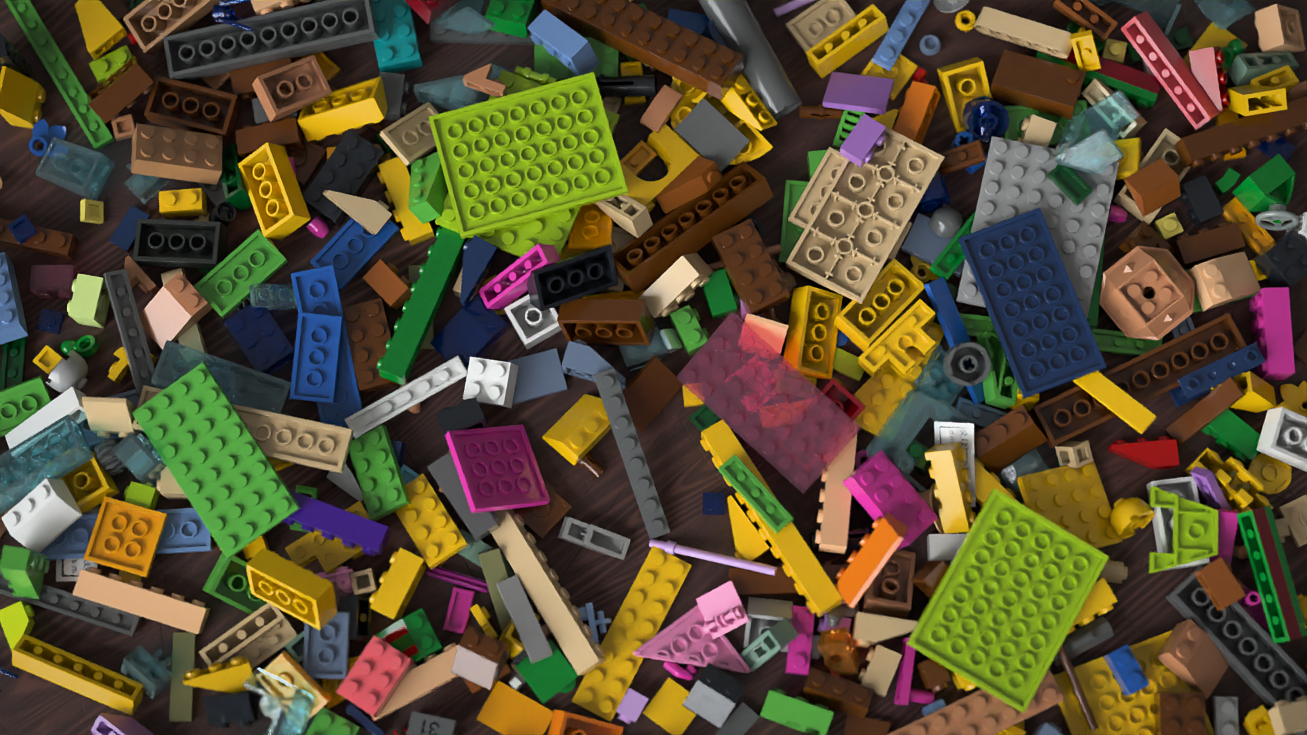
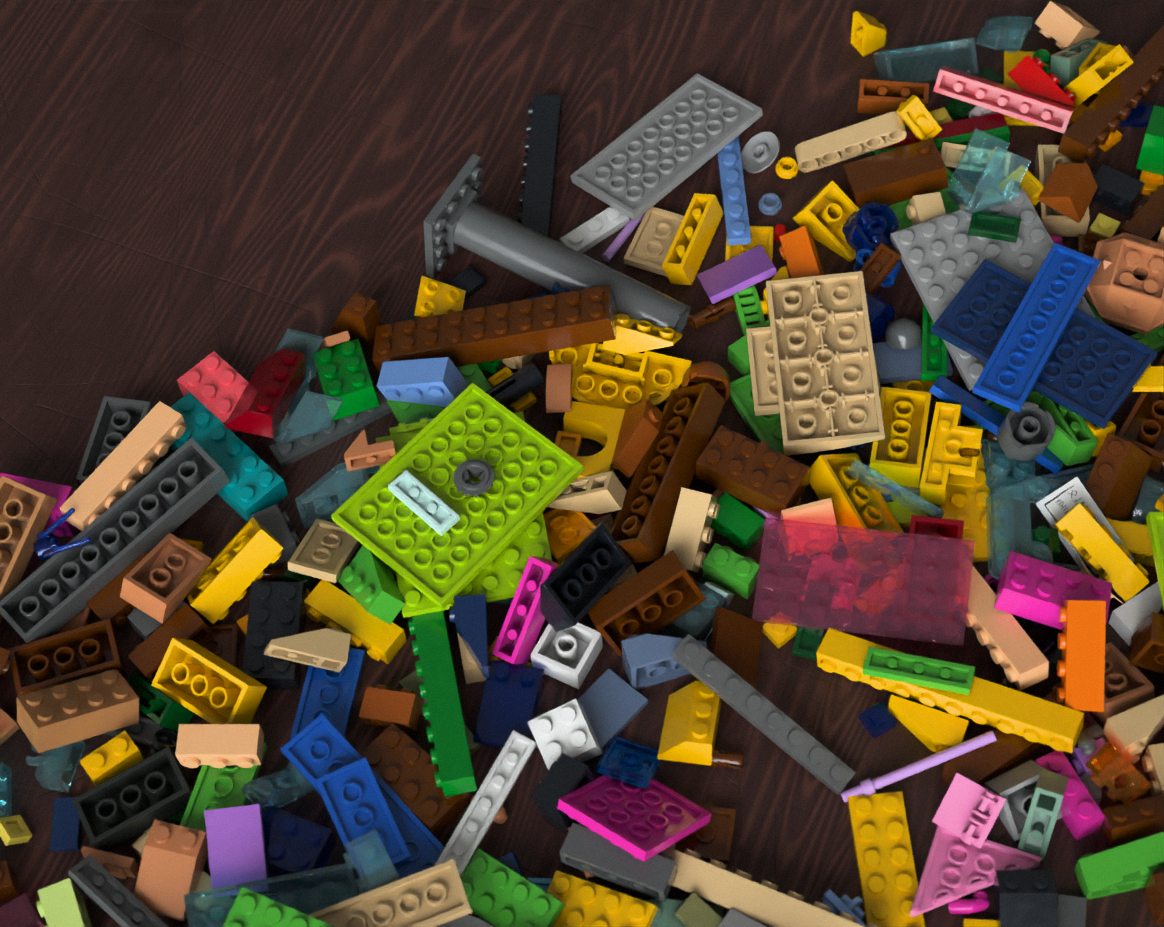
camera: 30 degrees left, 20 degrees down
(222, 324) = (236, 845): none -> medium lavender tile
(252, 245) = (219, 745): none -> light nougat brick
(300, 395) = (370, 862): none -> clear light blue brick
(319, 227) = (277, 701): dark pink hose -> none
(497, 149) = (423, 502): none -> light aqua tile
(522, 427) = (629, 762): none -> clear blue tile
(535, 147) = (476, 468): none -> dark grey gear
(594, 538) = (781, 828): light grey slope -> none
(712, 134) = (624, 382): dark grey tile -> none
(774, 168) = (708, 372): none -> dark orange cylinder
(839, 349) = (893, 490): none -> clear light blue tile
(863, 141) = (777, 298): medium lavender brick -> none
(1031, 290) = (1036, 327): none -> blue plate
(1226, 182) = (1123, 161): green piece -> none

